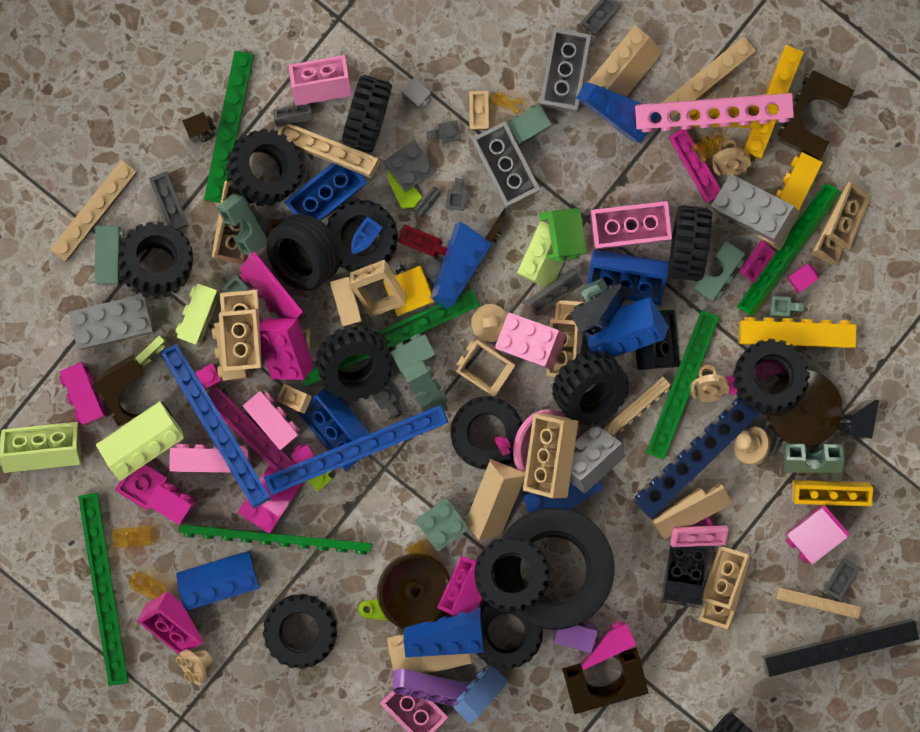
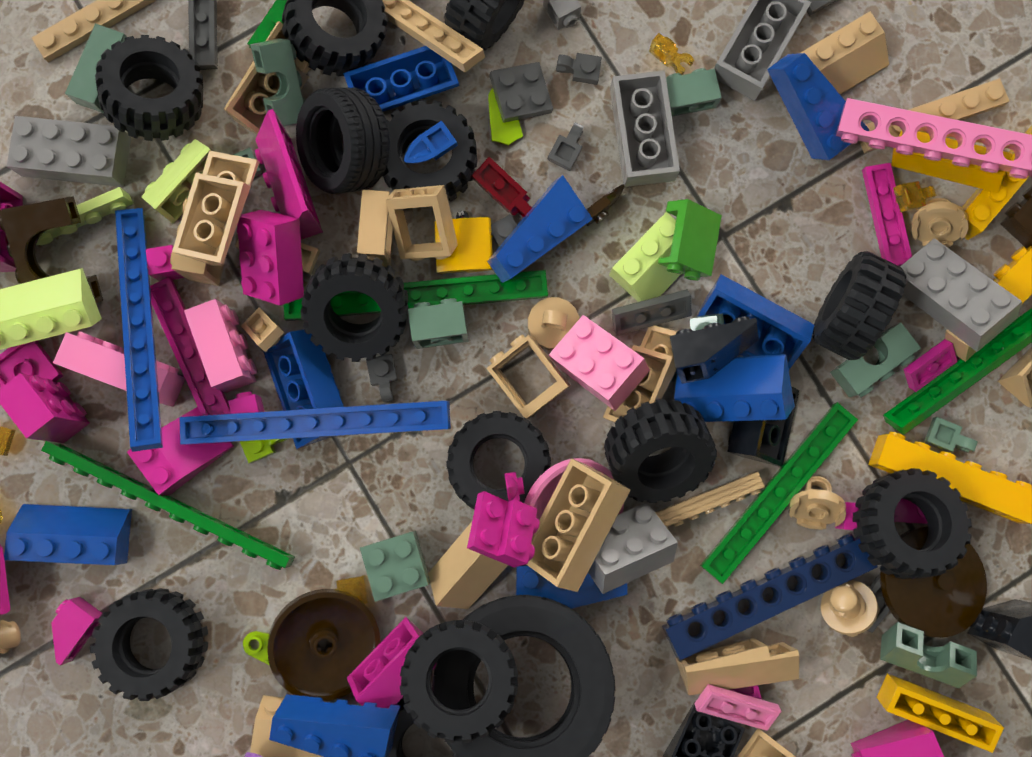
camera: 15 degrees right, 5 degrees down
(244, 639) = (73, 628): none -> dark pink slope
(420, 380) = (434, 359): sand green arch -> none
(430, 198) = (524, 145): dark grey piece -> none
(478, 110) = (633, 51): tan plate -> none
(506, 474) = (503, 529): none -> dark pink plate
(649, 220) = (806, 267): bright pink brick -> none
(803, 277) = (984, 407): dark pink brick -> none

